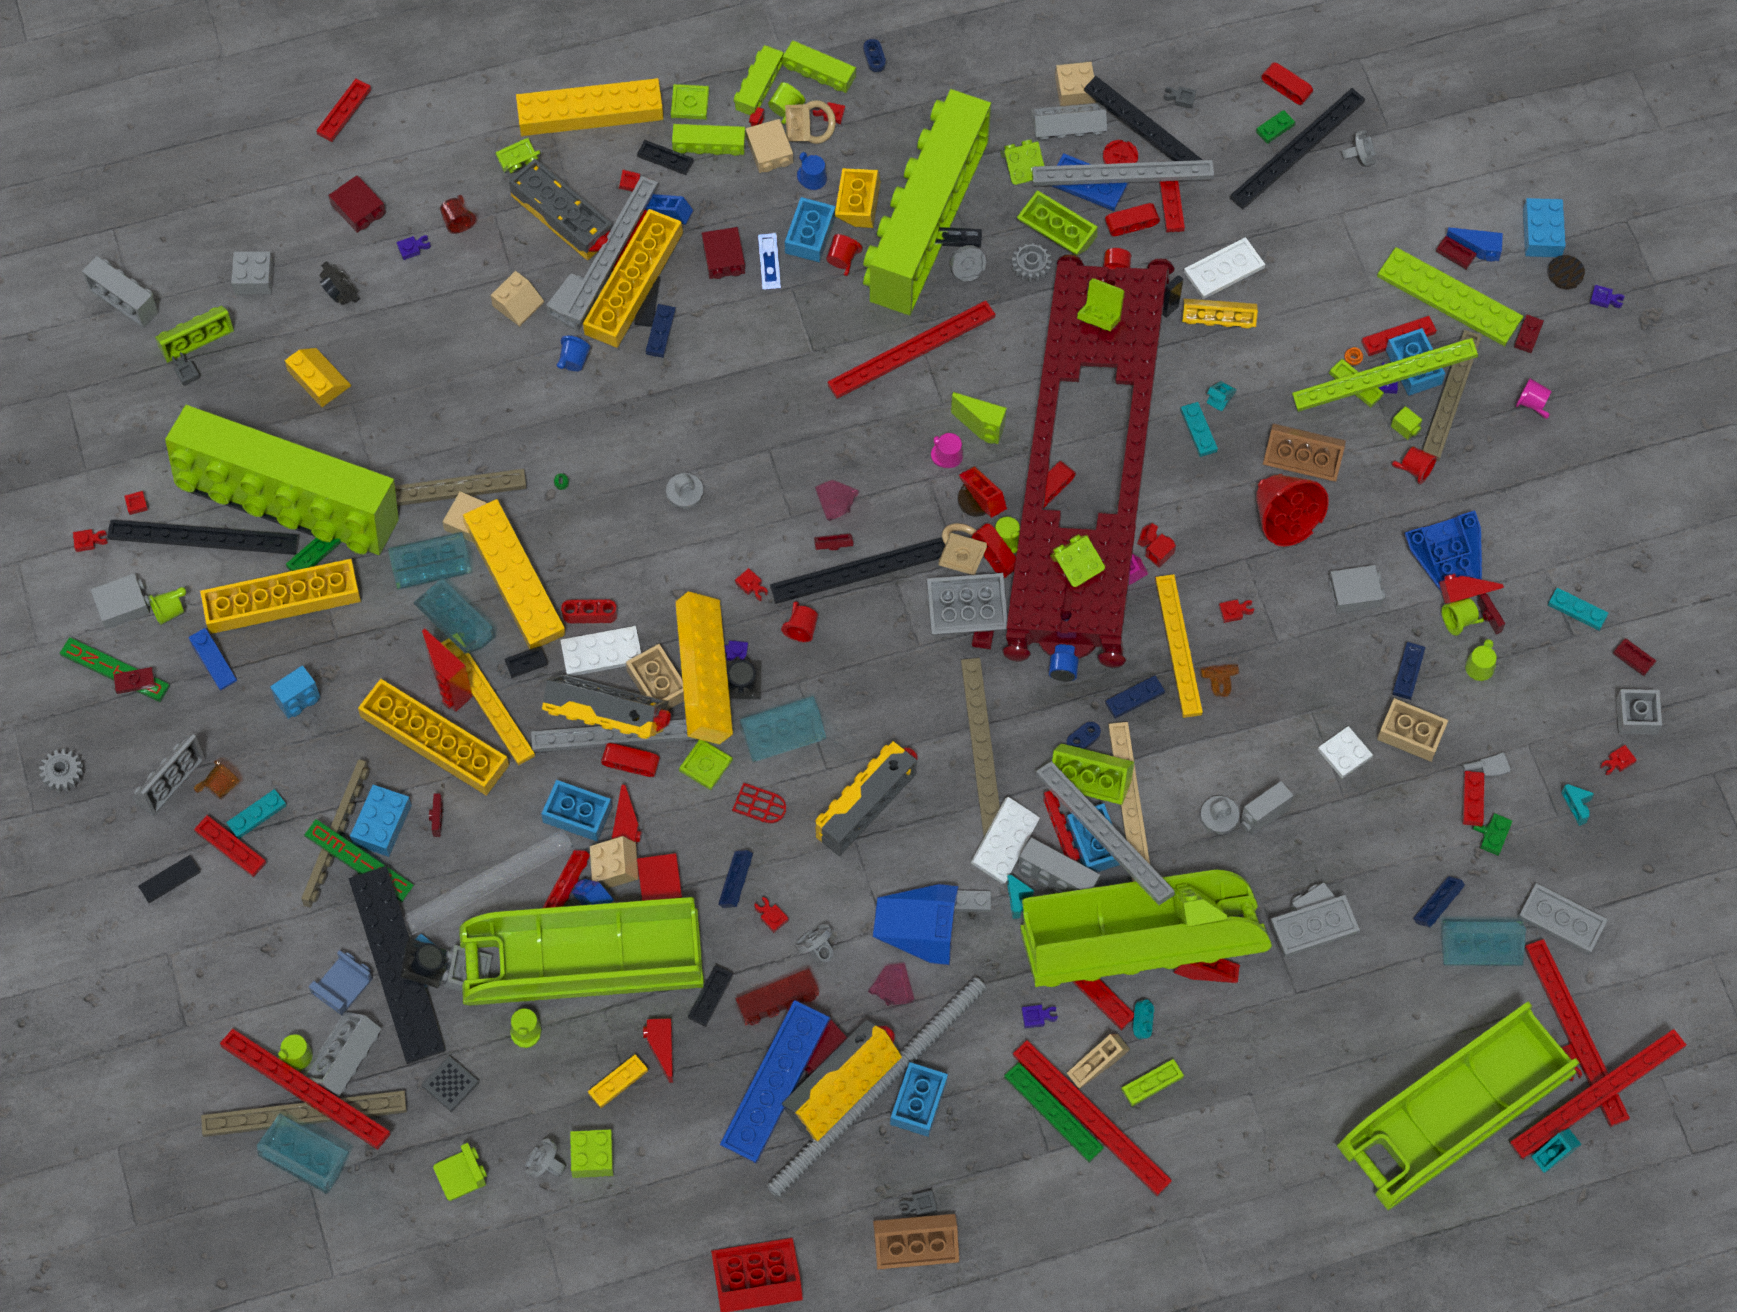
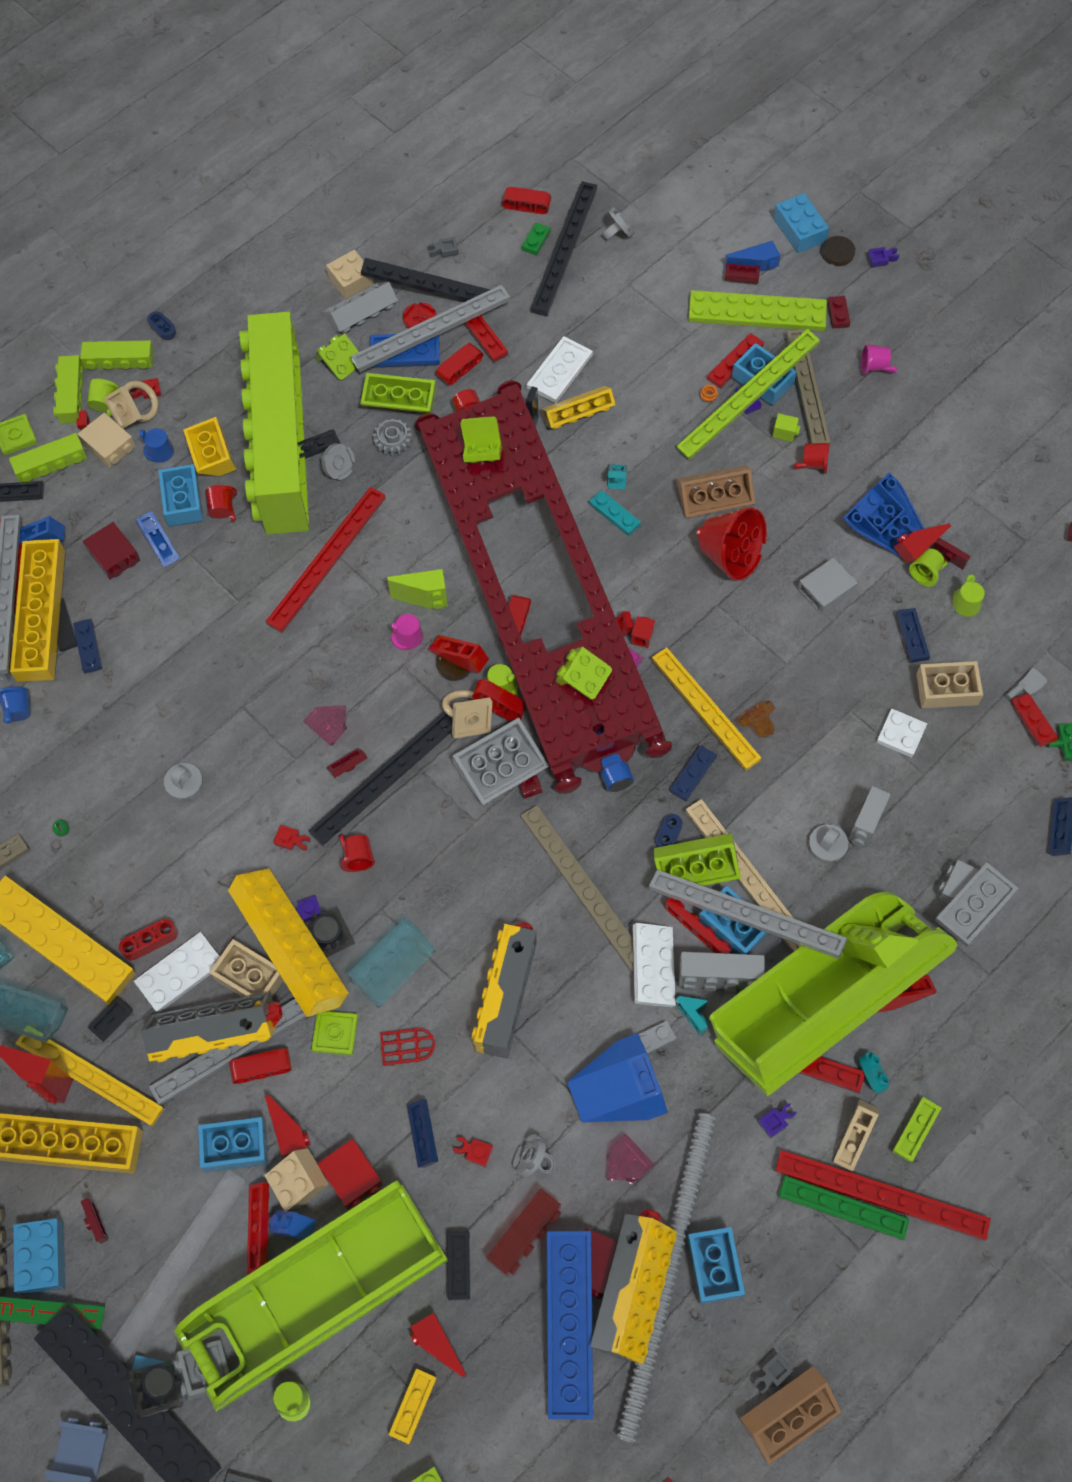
camera: 25 degrees left, 0 degrees up
(1233, 610) = (734, 655): red plate -> none
(1343, 369) = (707, 408): lime plate -> none
(1578, 609) = (1016, 516): teal plate -> none

